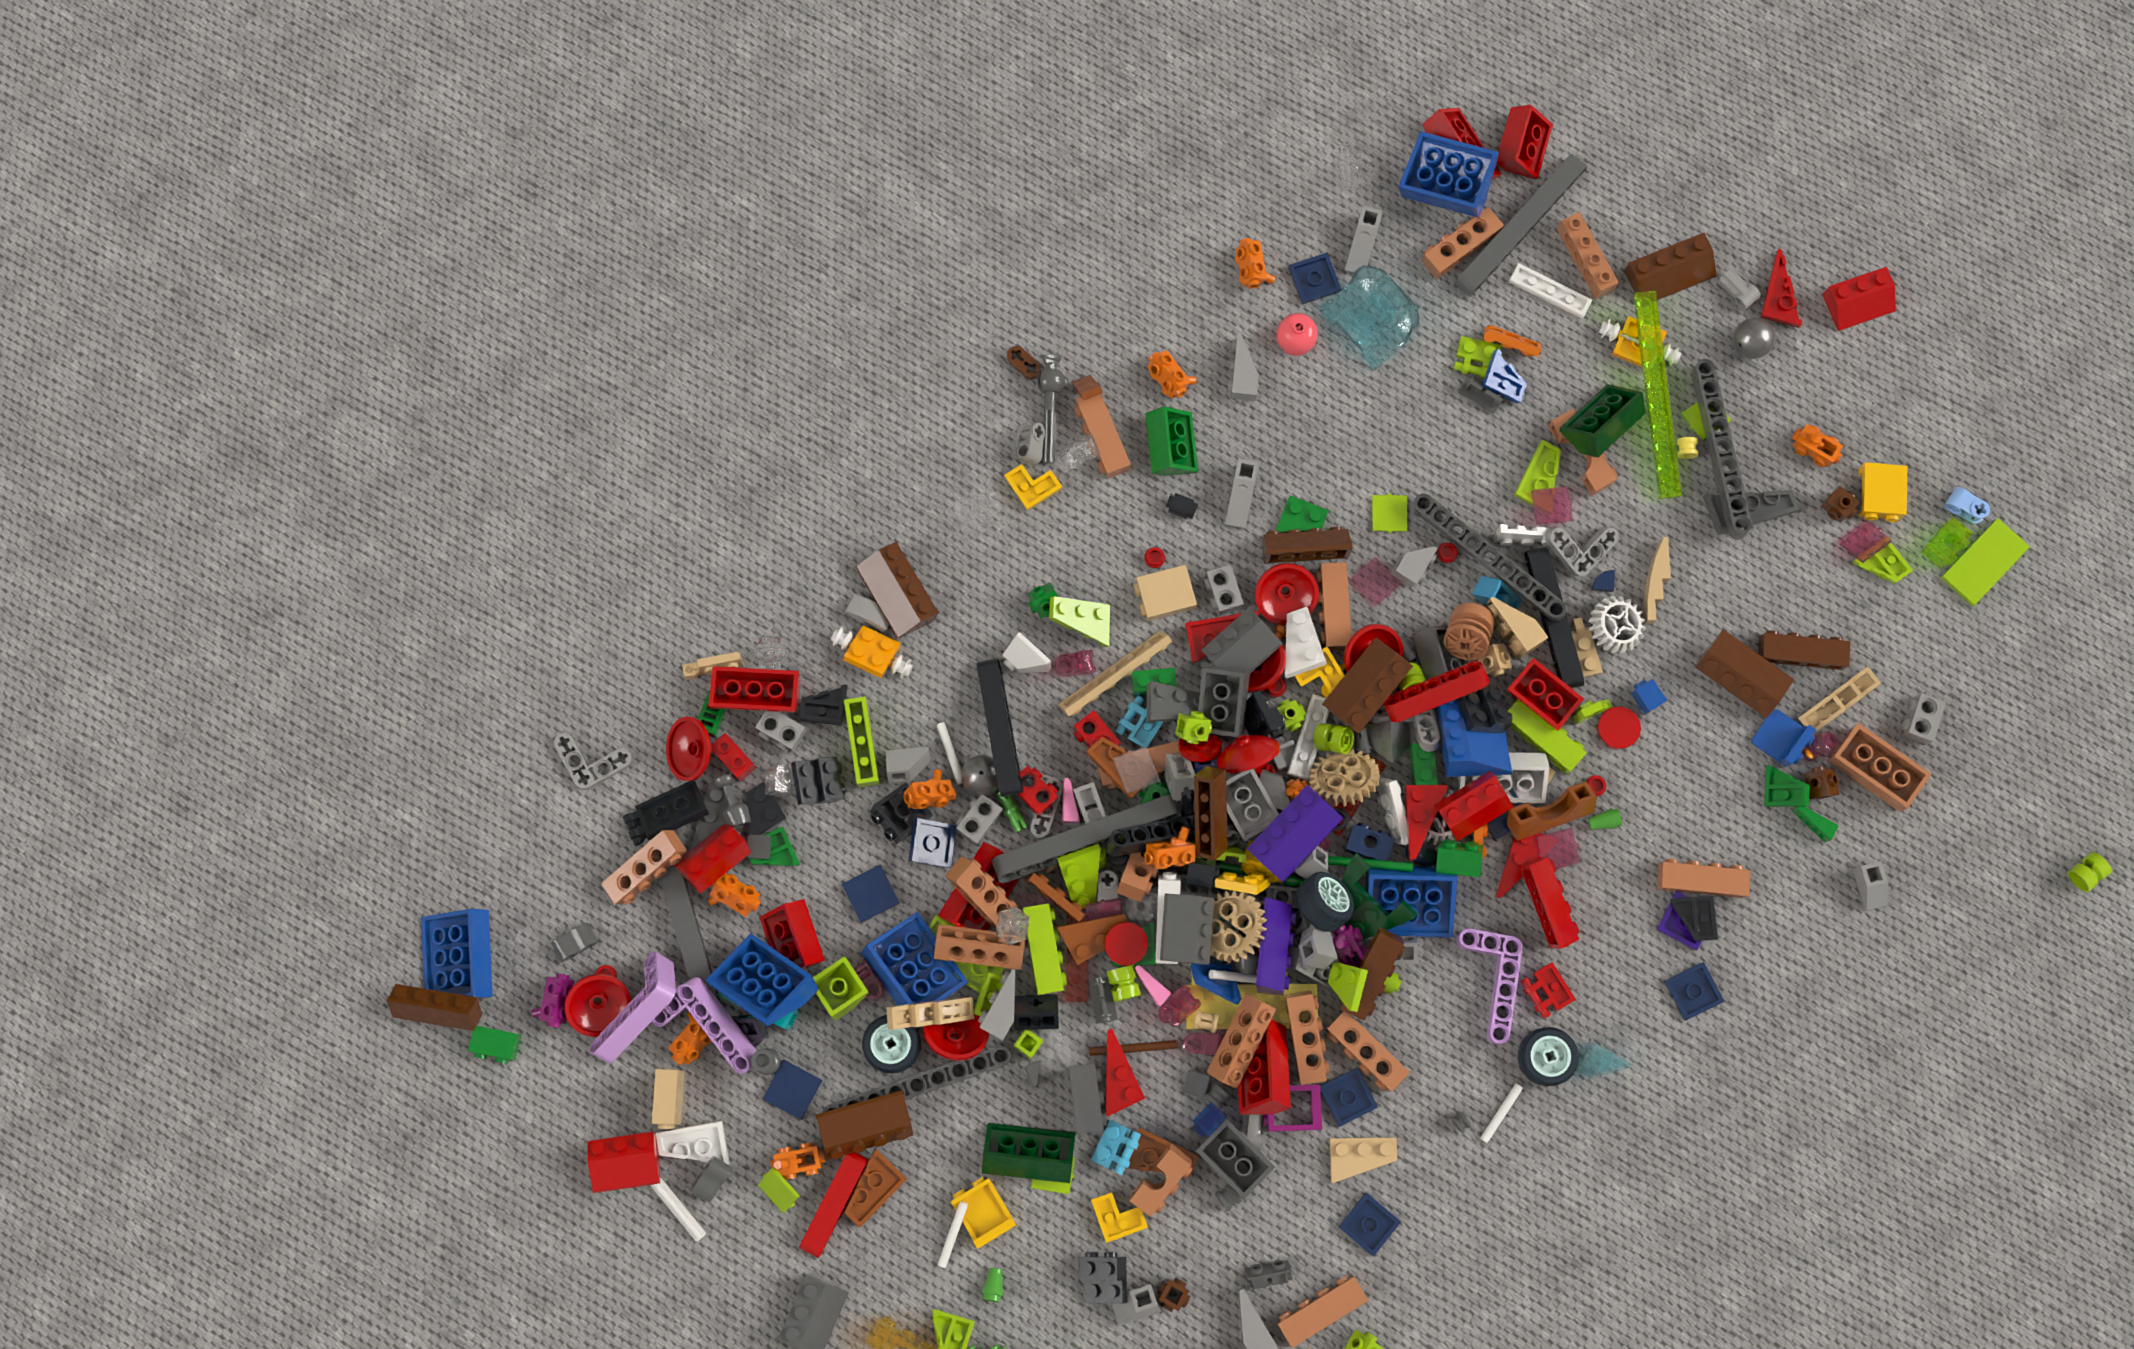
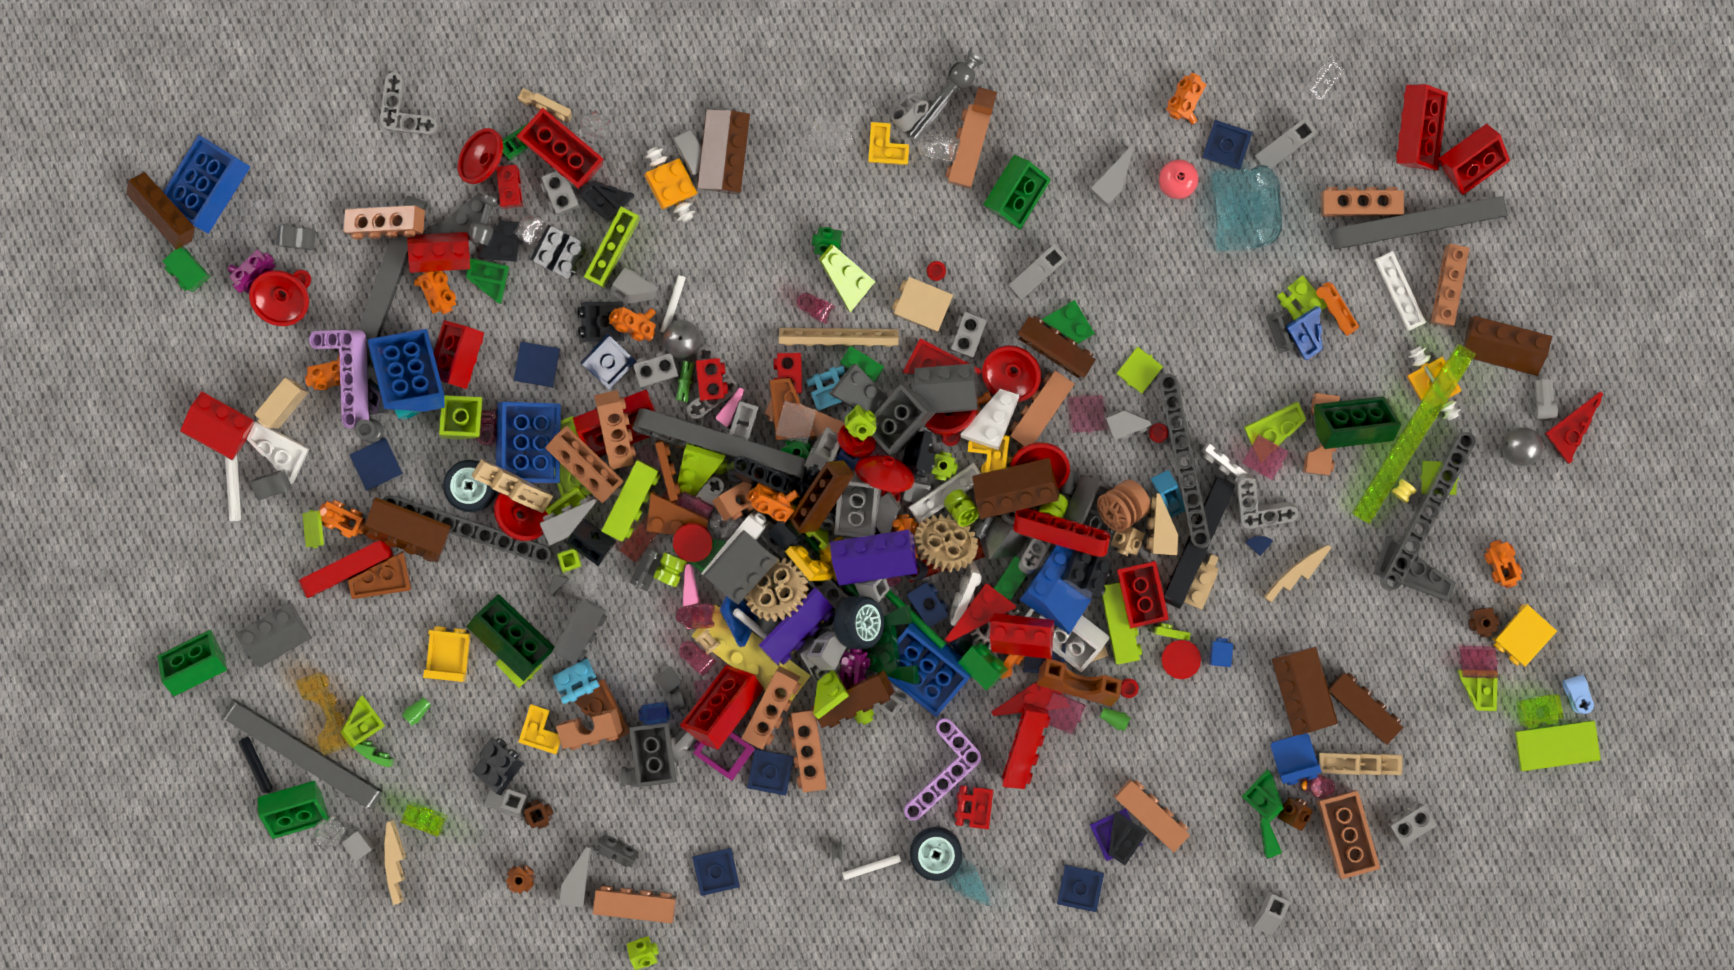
camera: 40 degrees right, 10 degrees up
(641, 1011) = (306, 326): lavender beam -> none
(666, 812) = (430, 192): black tile -> none
(759, 846) = (479, 269): dark grey slope -> none
(953, 1232) = (414, 653): white bar -> none
(999, 727) = (720, 313): black beam -> none
(1012, 925) = (618, 467): clear brick -> none
(1020, 366) = (948, 45): reddish brown beam -> none
(1025, 657) = (779, 273): white slope -> none
(1121, 1084) = (614, 640): red wing -> none
(1136, 1047) = (643, 620): reddish brown bar -> none
(1169, 374) = (1055, 138): orange brick -> none
(1181, 506) = (986, 247): black brick -> none
(1241, 1041) = (721, 675): nougat brick -> none
(1359, 1155) = (746, 818): tan wing -> none
(1448, 174) = (1392, 141): blue slope -> none
(1606, 627) = (1232, 569): white gear -> none
(1861, 298) = (1632, 478): red slope -> none

